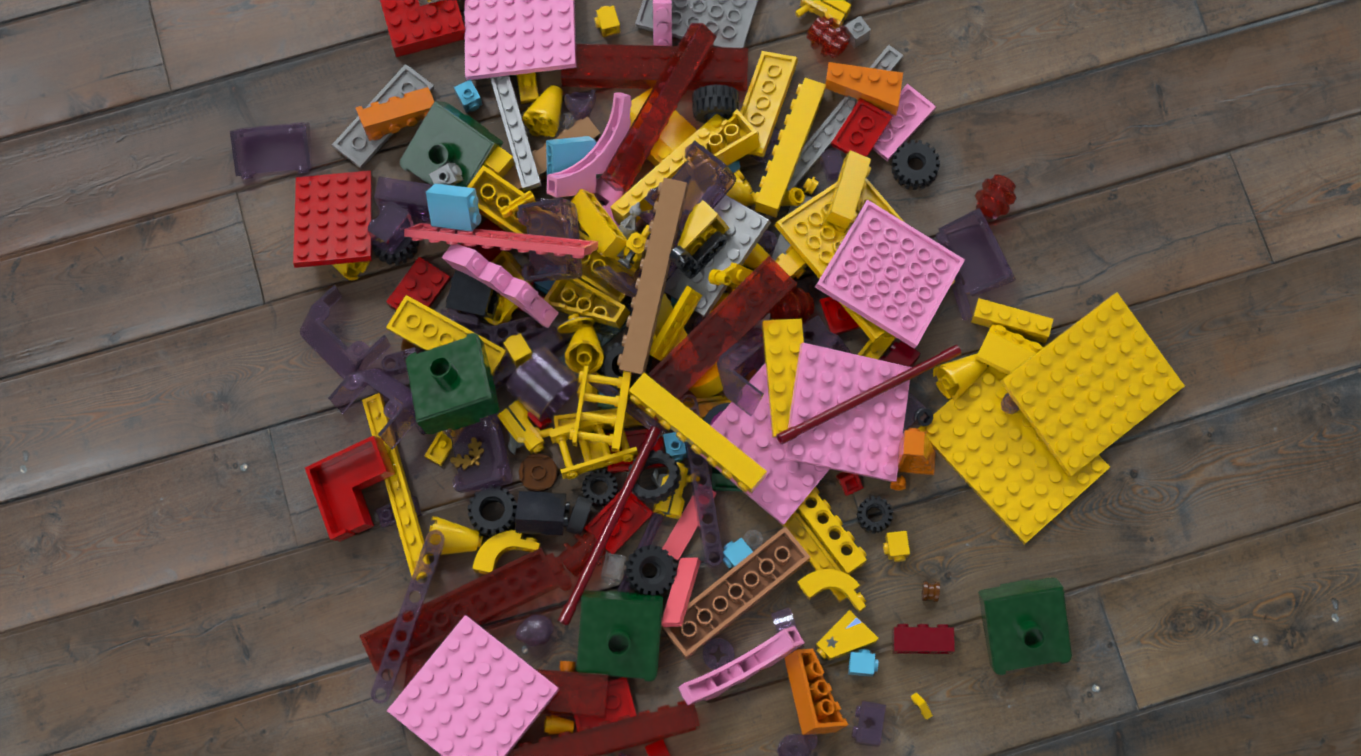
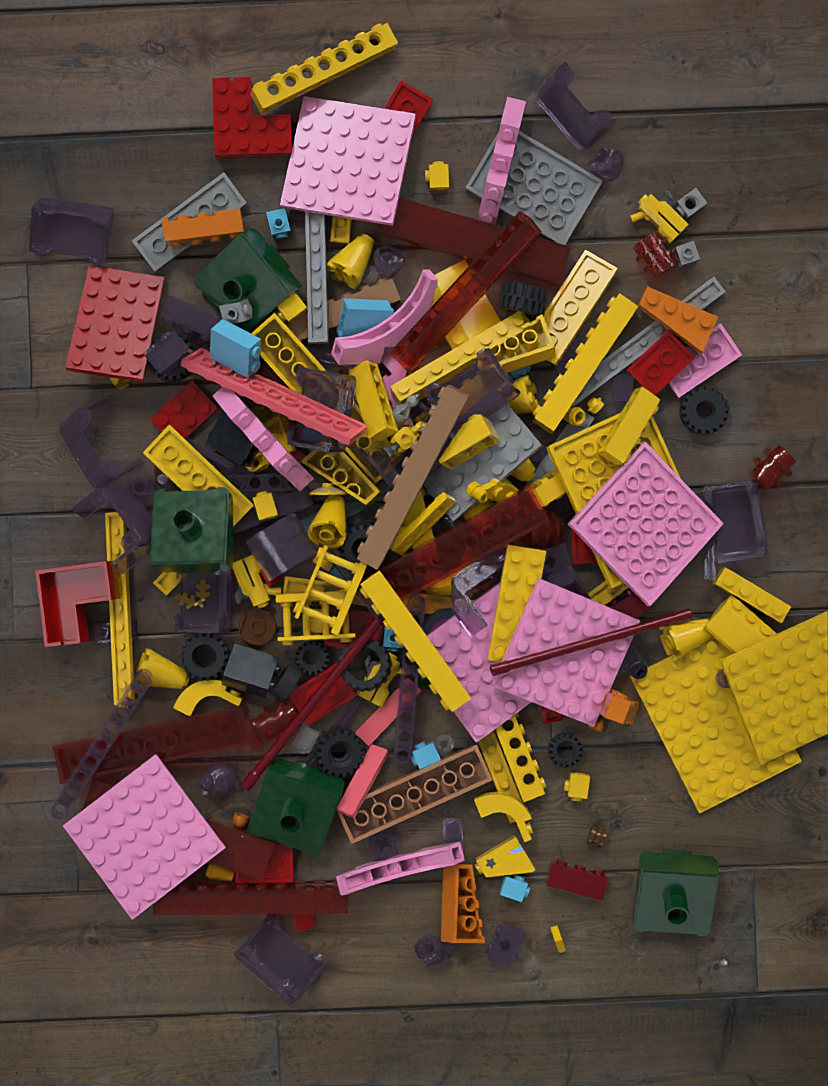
camera: 15 degrees right, 15 degrees up
(506, 211) = (298, 362): yellow axle -> none
(692, 265) = (450, 470): black beam -> none

